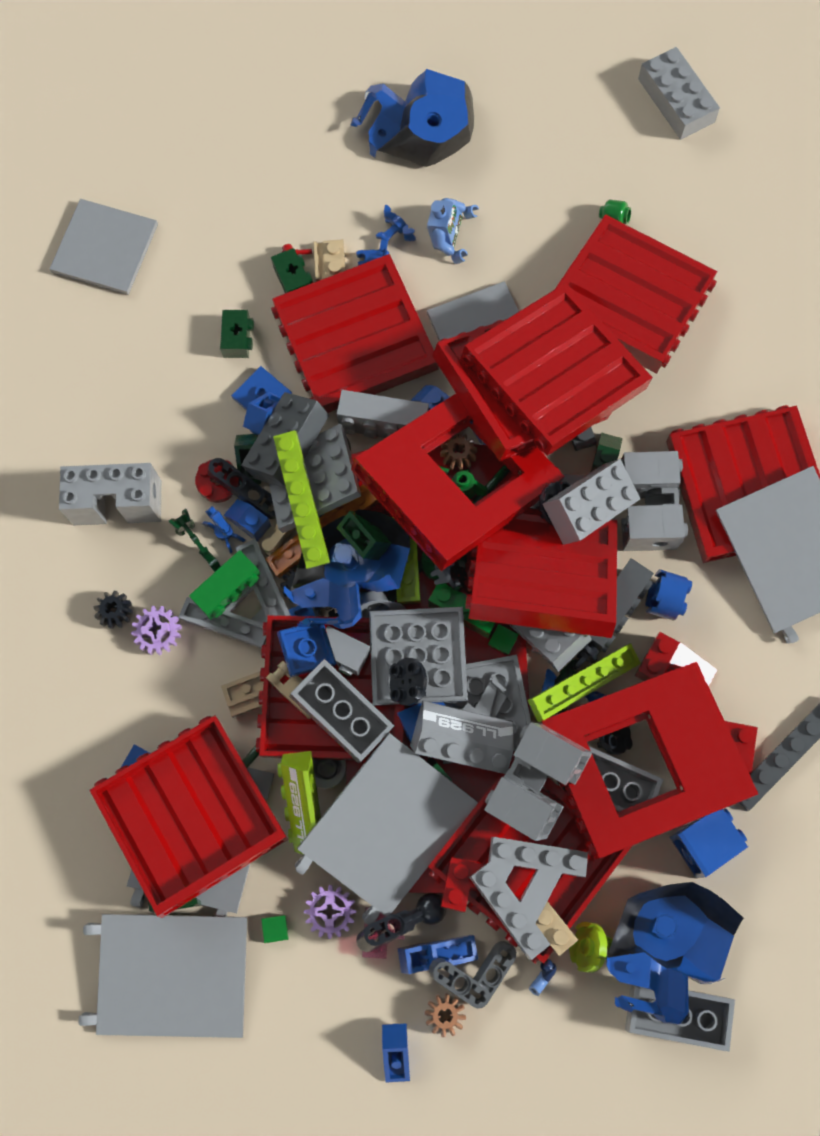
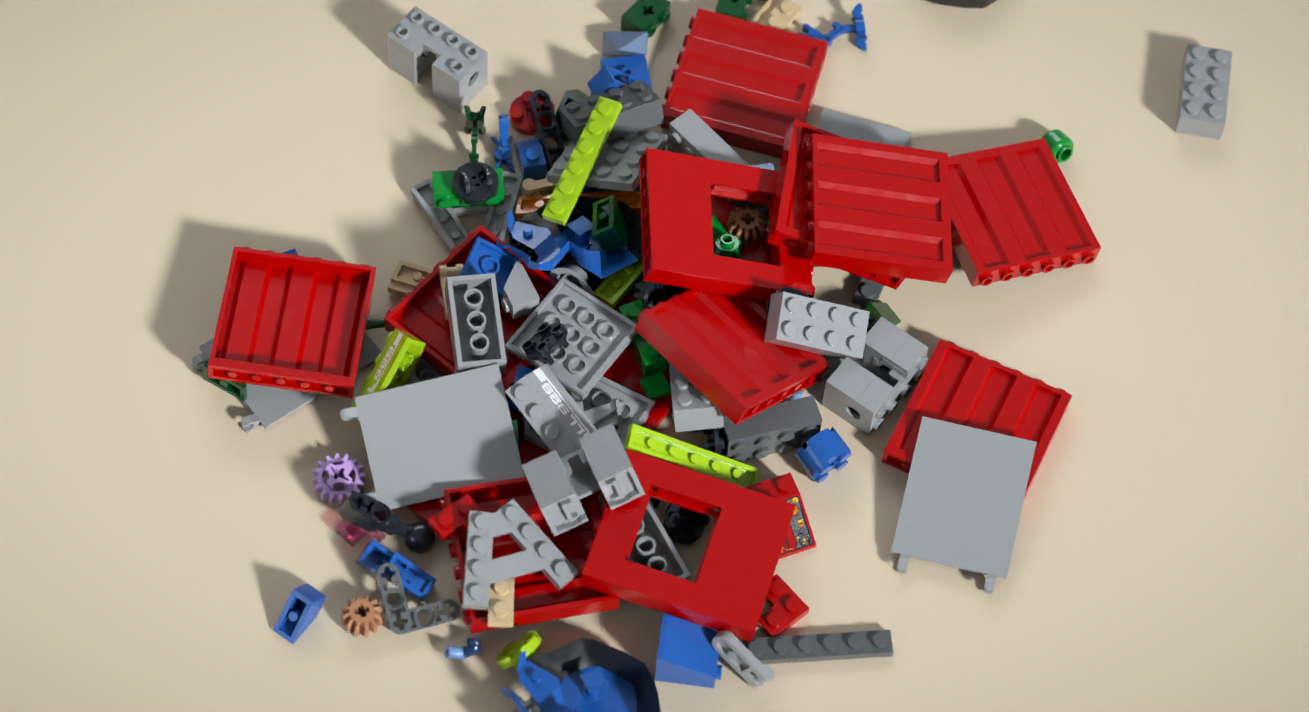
camera: 30 degrees right, 15 degrees down
(111, 618) = (364, 146): black gear -> none
(165, 630) = (384, 185): lavender gear -> none
(170, 976) = (177, 430): light grey flag -> none
(226, 589) = (466, 187): none -> black plate
(239, 368) = (625, 42): none -> sand blue slope
(275, 929) = (285, 461): green tile -> none
(445, 224) = (898, 52): medium blue torso -> none
(754, 814) = (742, 659): none -> light grey plate

